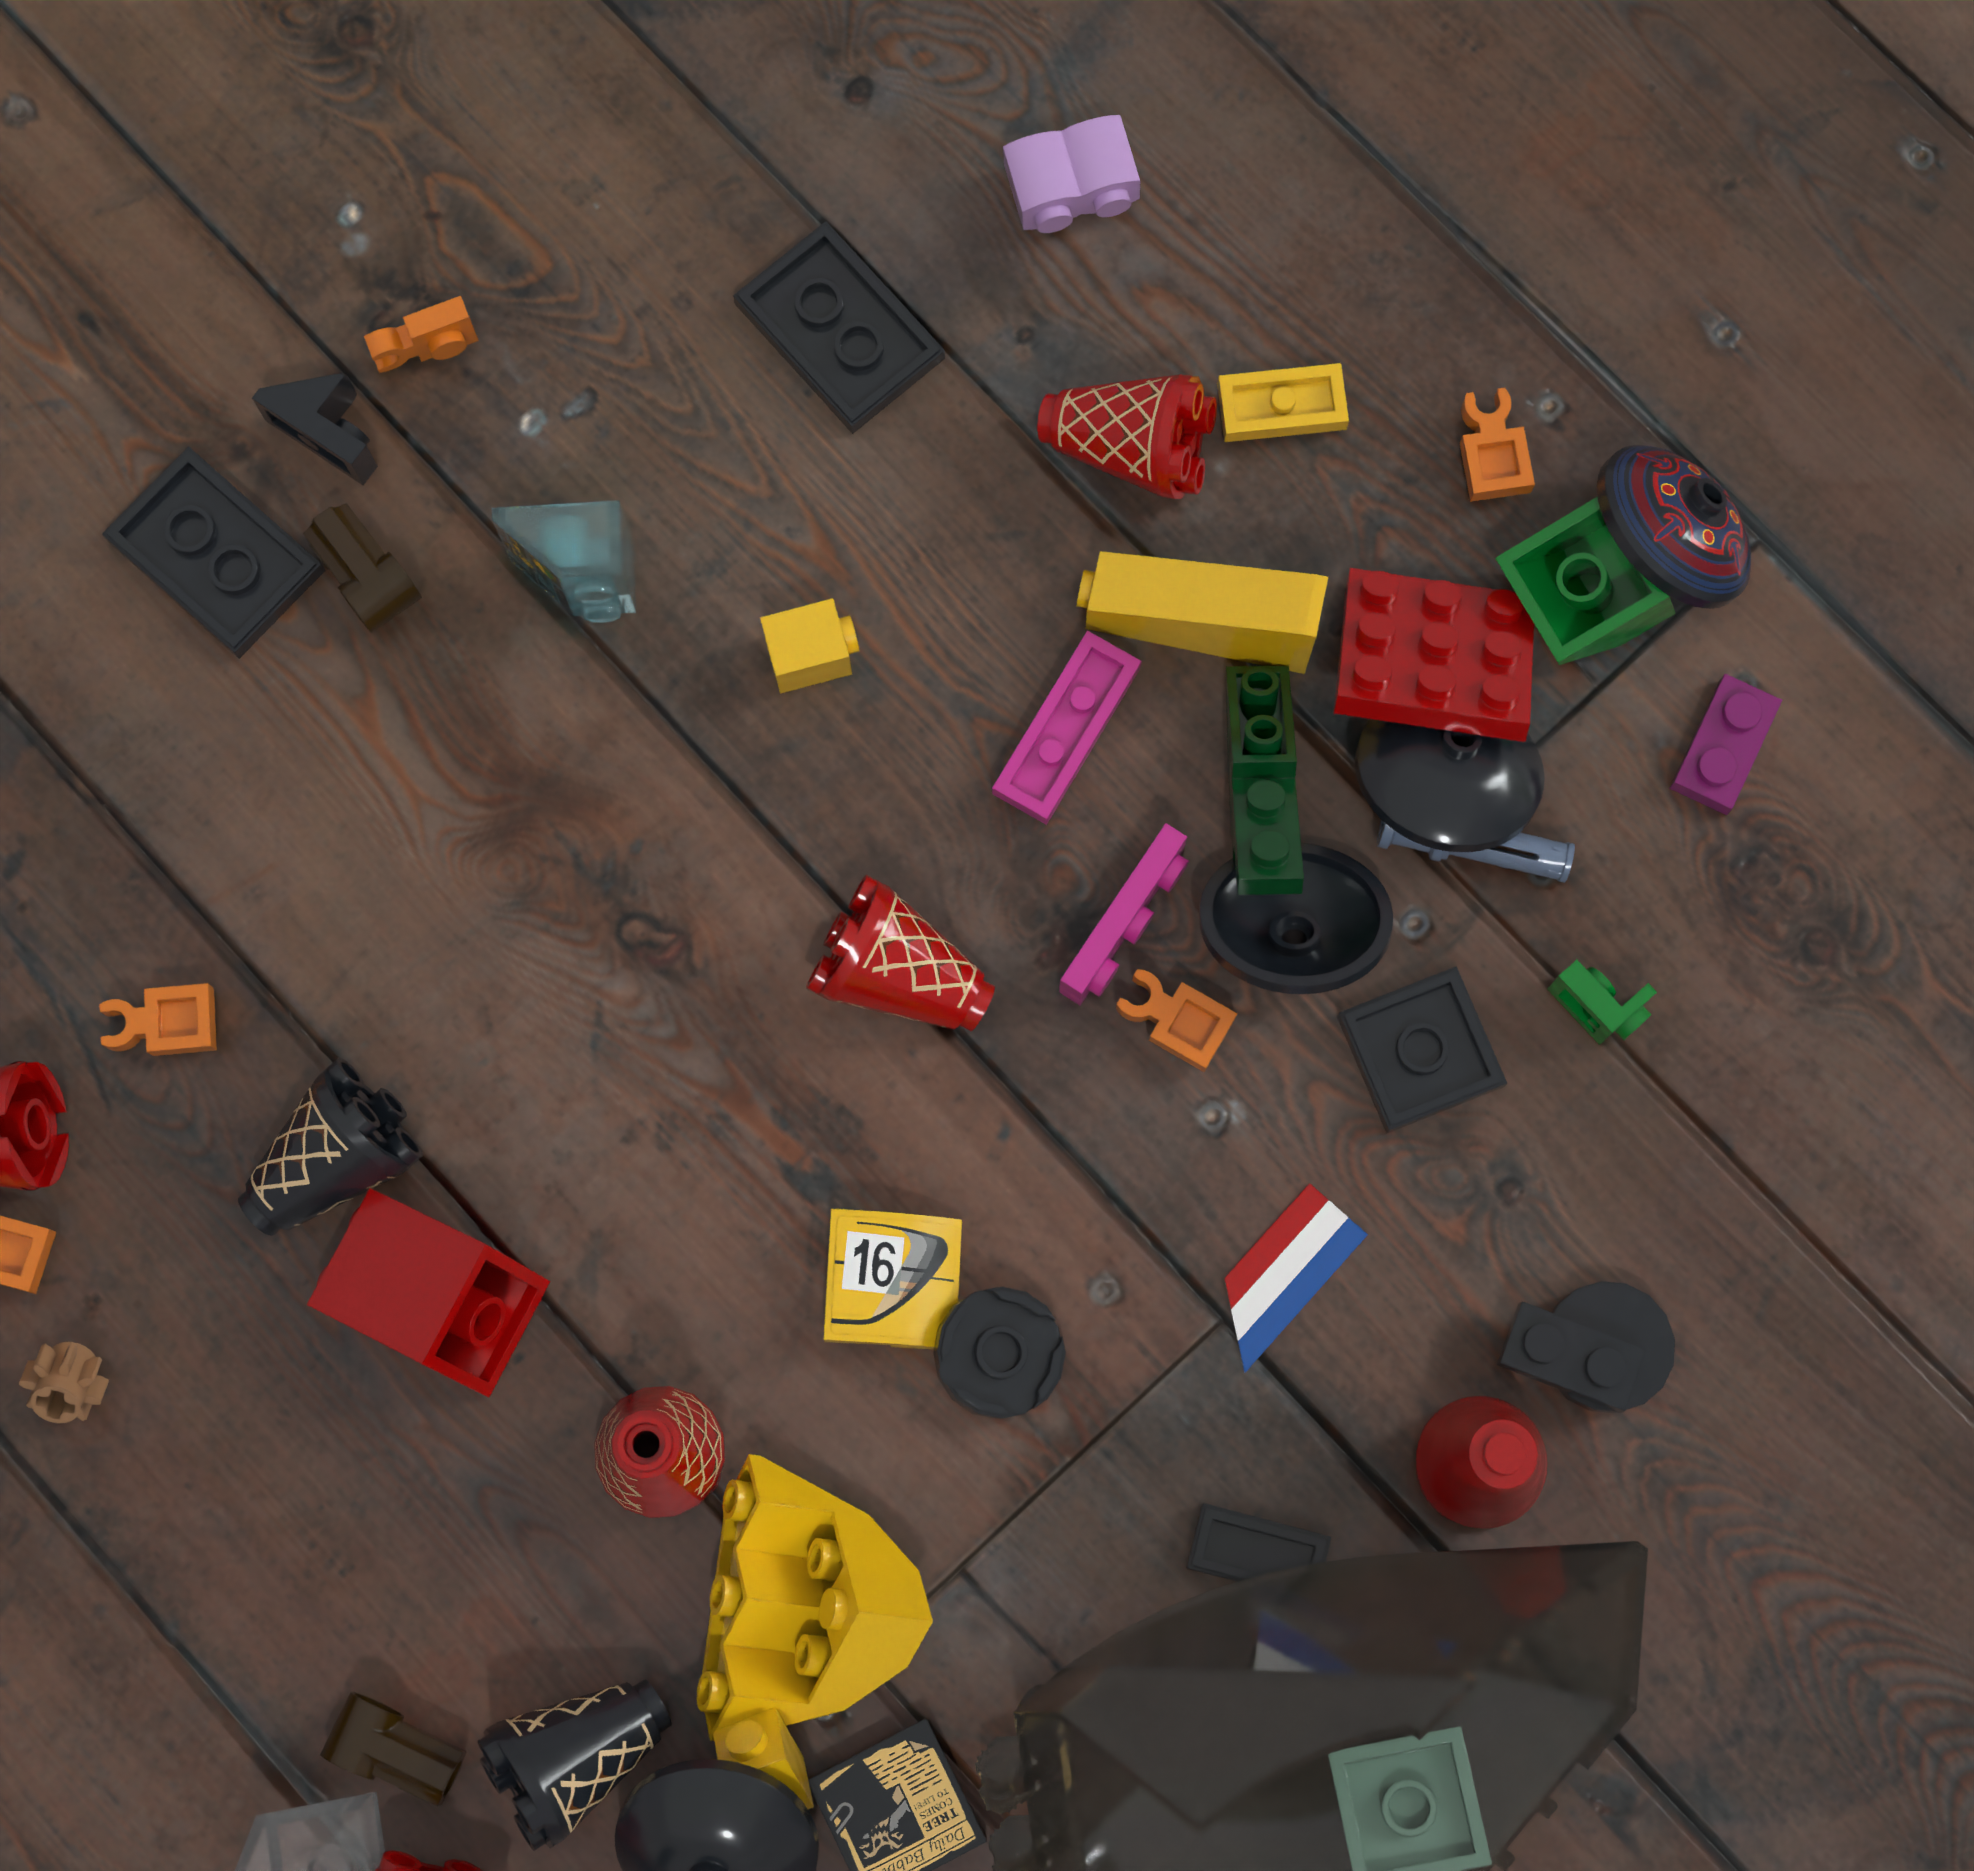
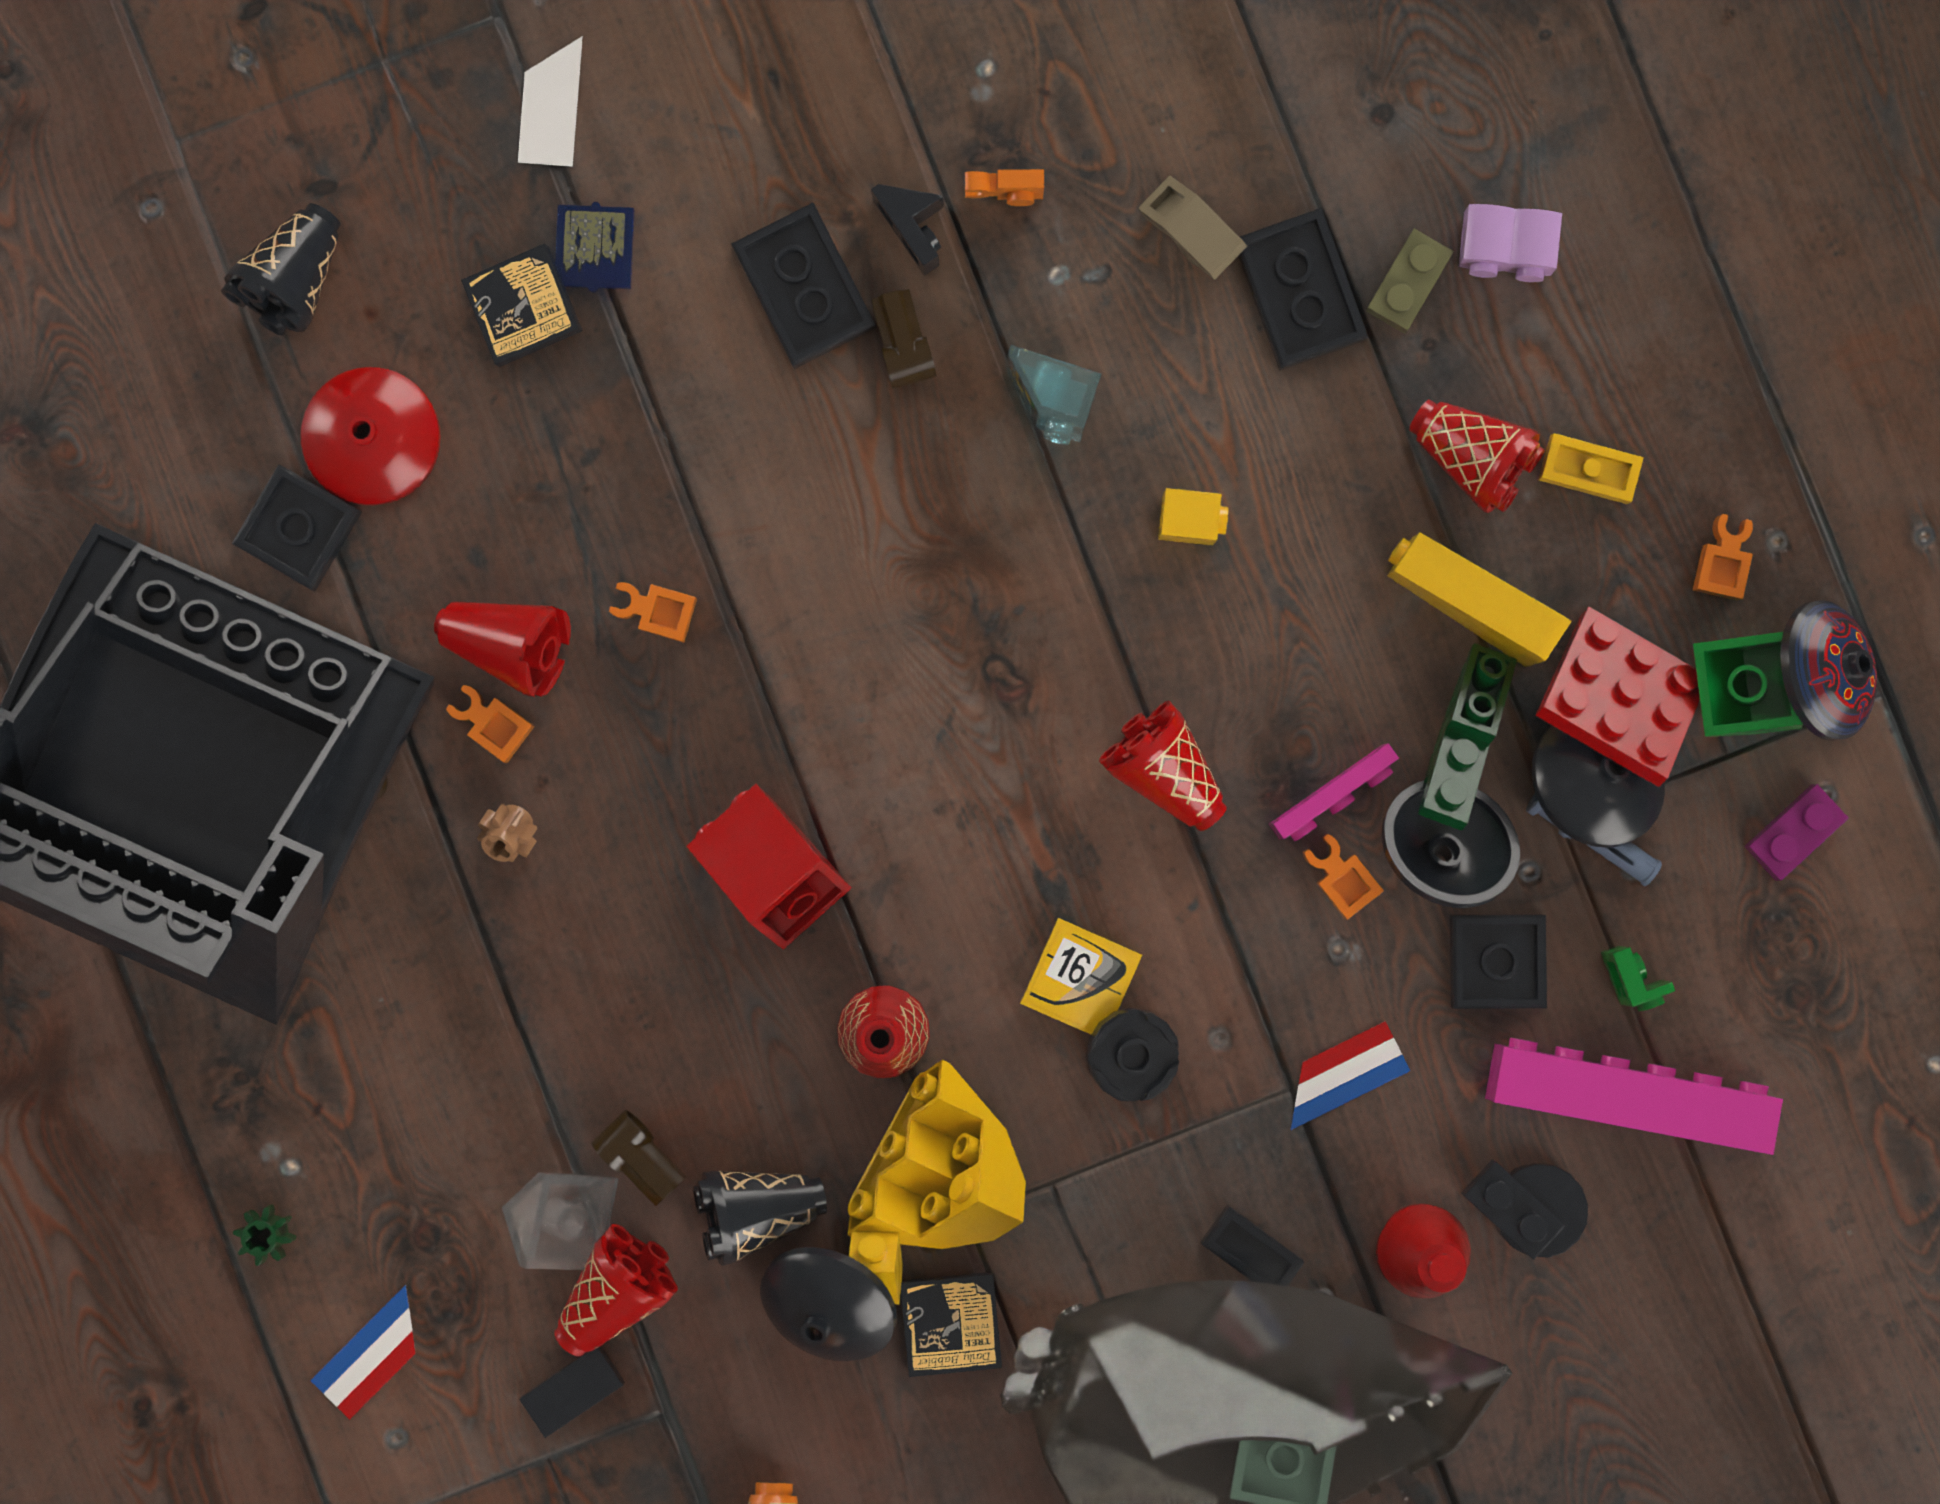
camera: 25 degrees right, 10 degrees up
(329, 1152) = (737, 747): black cone -> none
(677, 298) = (1193, 227): none -> dark tan slope
(969, 268) = (1409, 281): none -> olive plate
(1066, 727) = (1346, 644): dark pink plate -> none
(1664, 1151) = (1634, 1098): none -> dark pink brick

